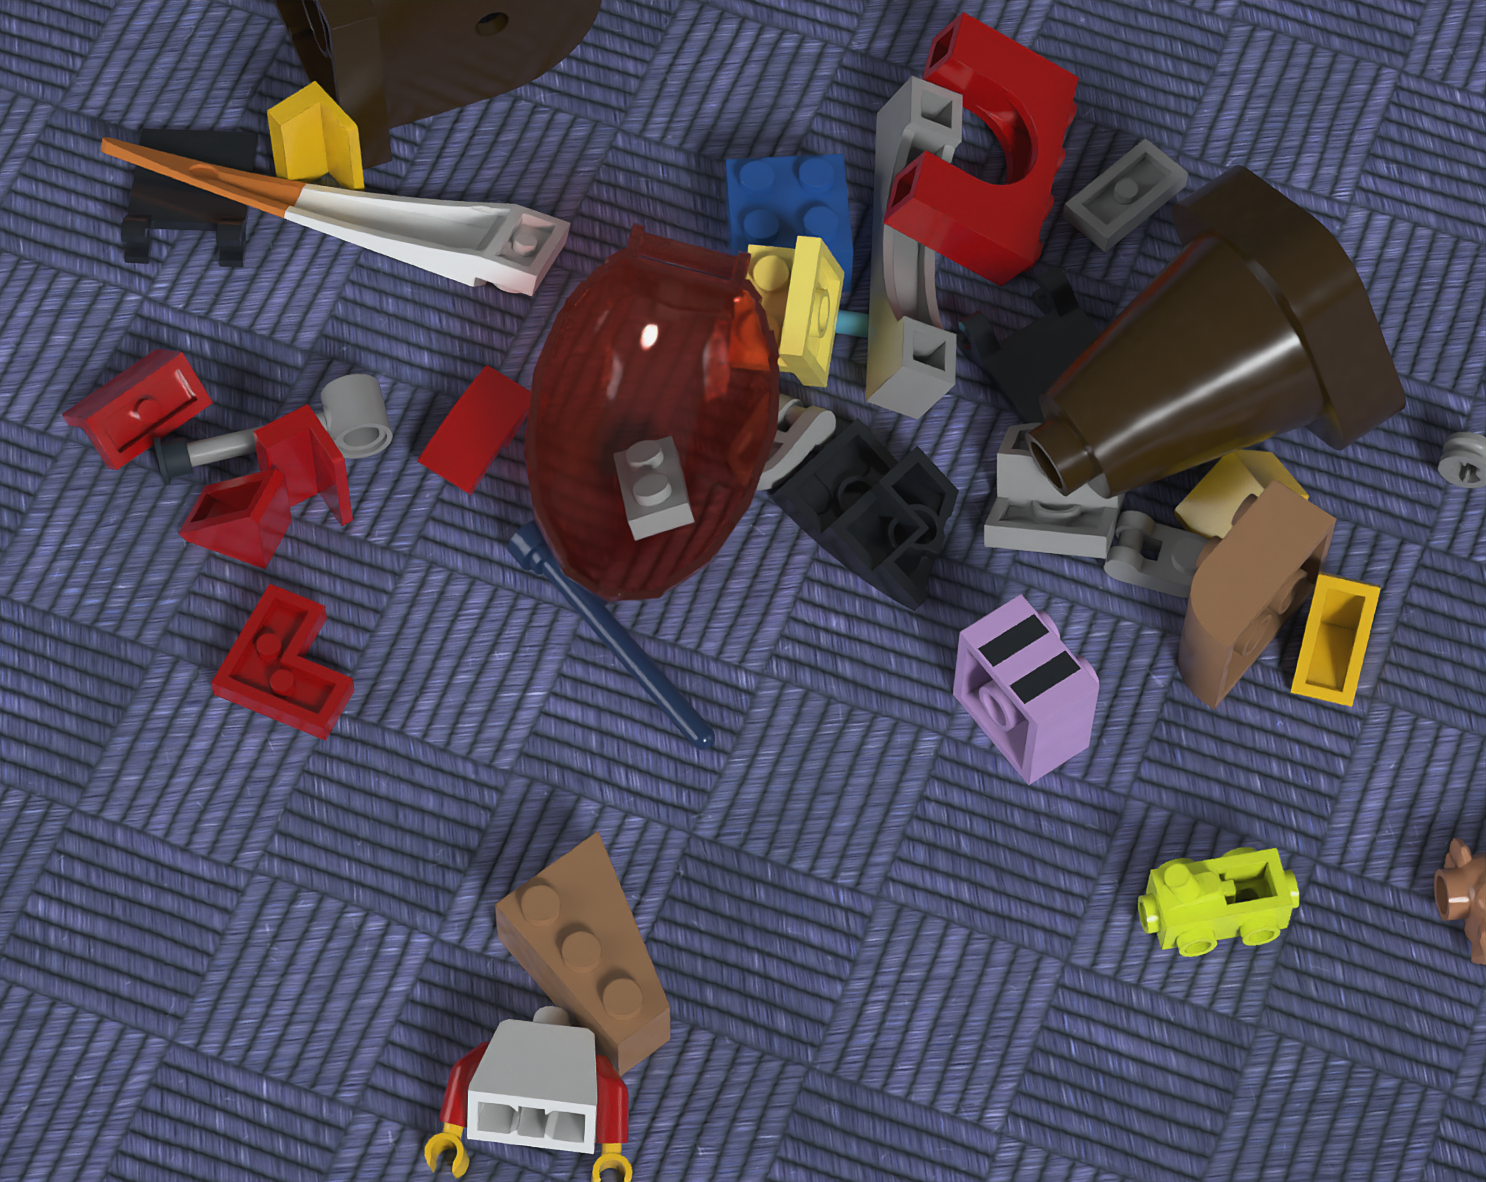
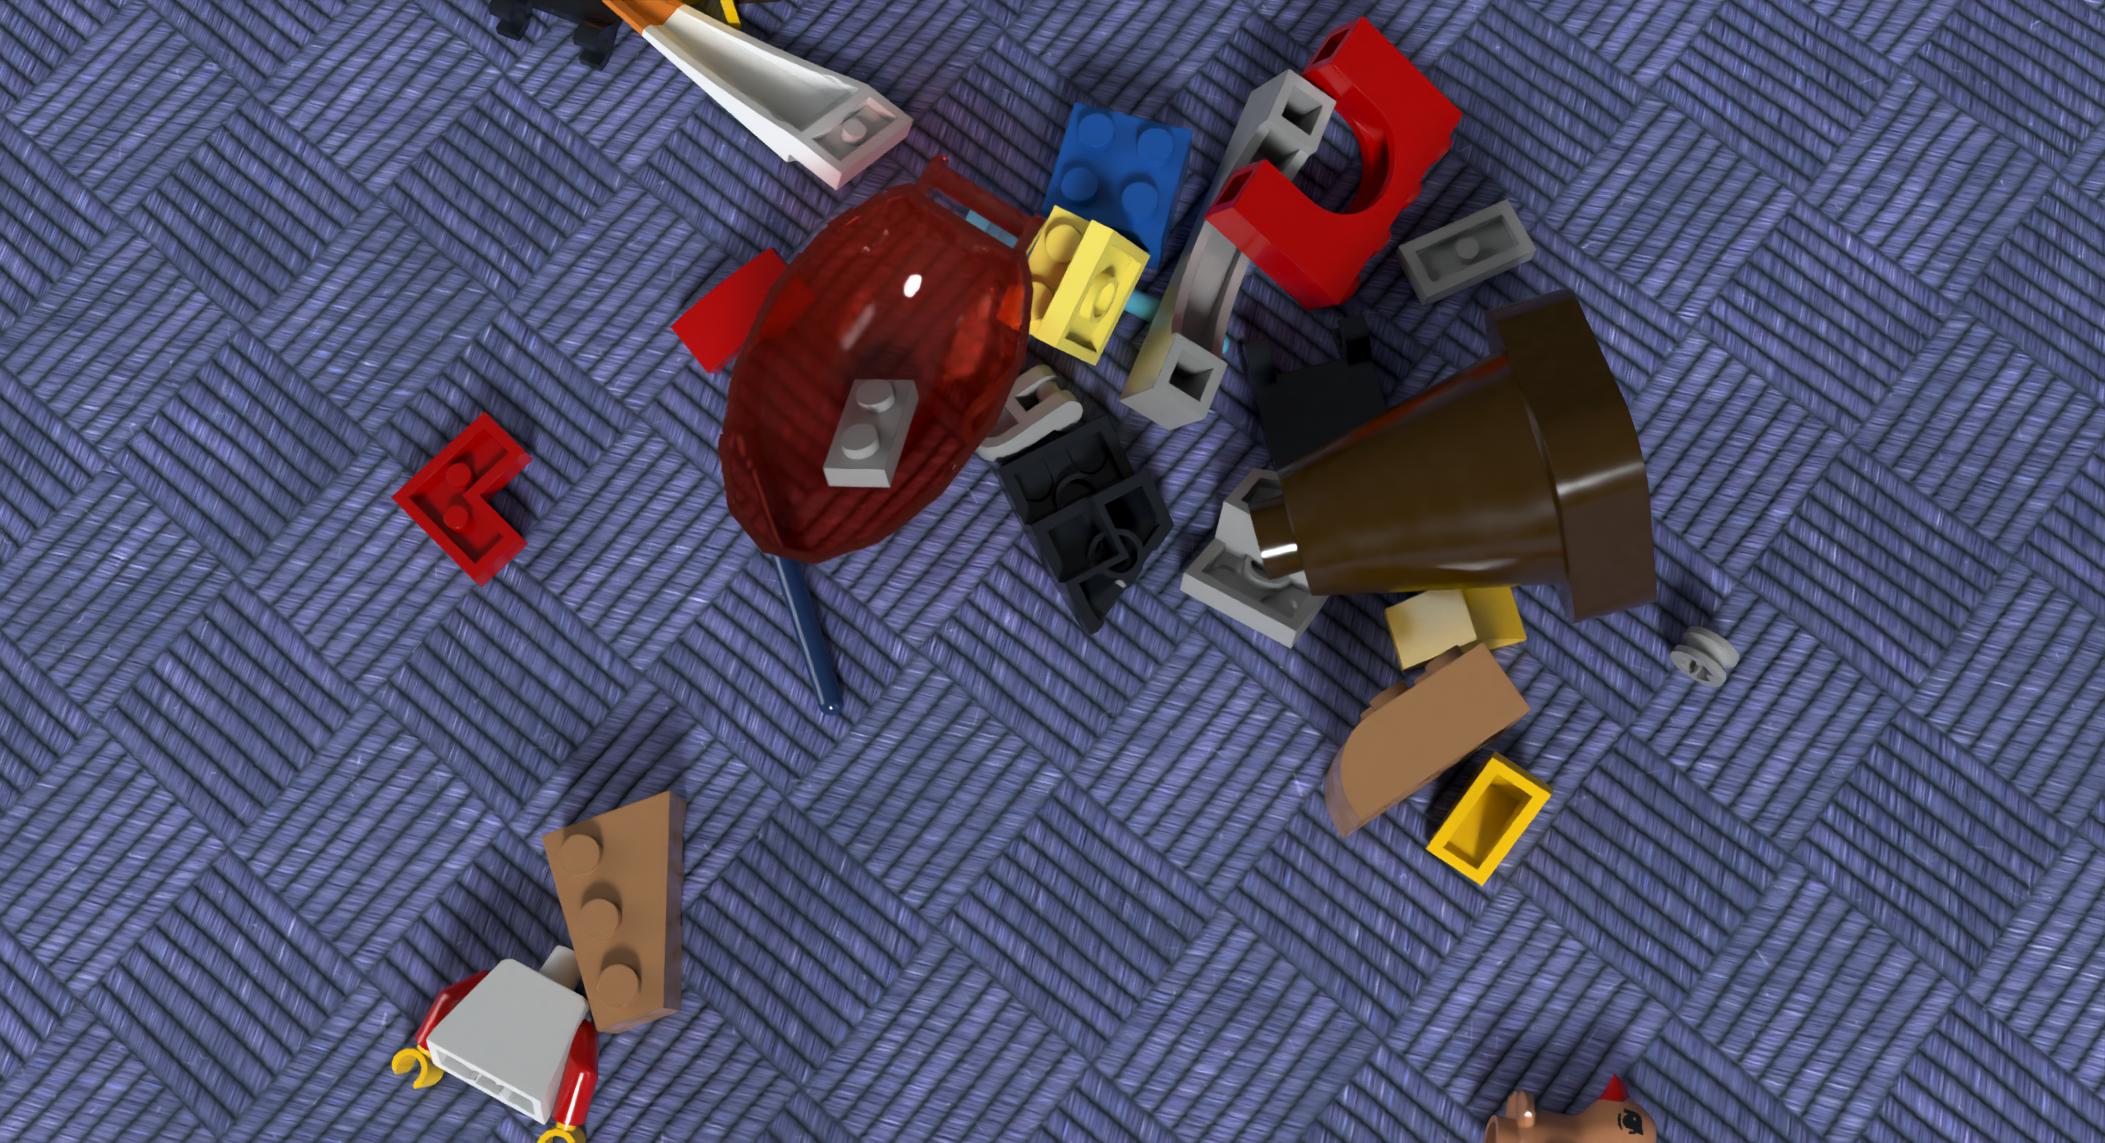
camera: 25 degrees right, 15 degrees up
(139, 406) = (443, 188): red panel -> none
(241, 517) = (491, 335): red slope -> none
(307, 458) = (549, 299): red panel -> none
(351, 415) = (627, 261): light grey piece -> none
(1026, 688) = (1151, 771): lavender brick -> none
(1176, 559) = (1368, 669): light grey plate -> none
(1197, 905) = (1239, 1062): neon yellow brick -> none

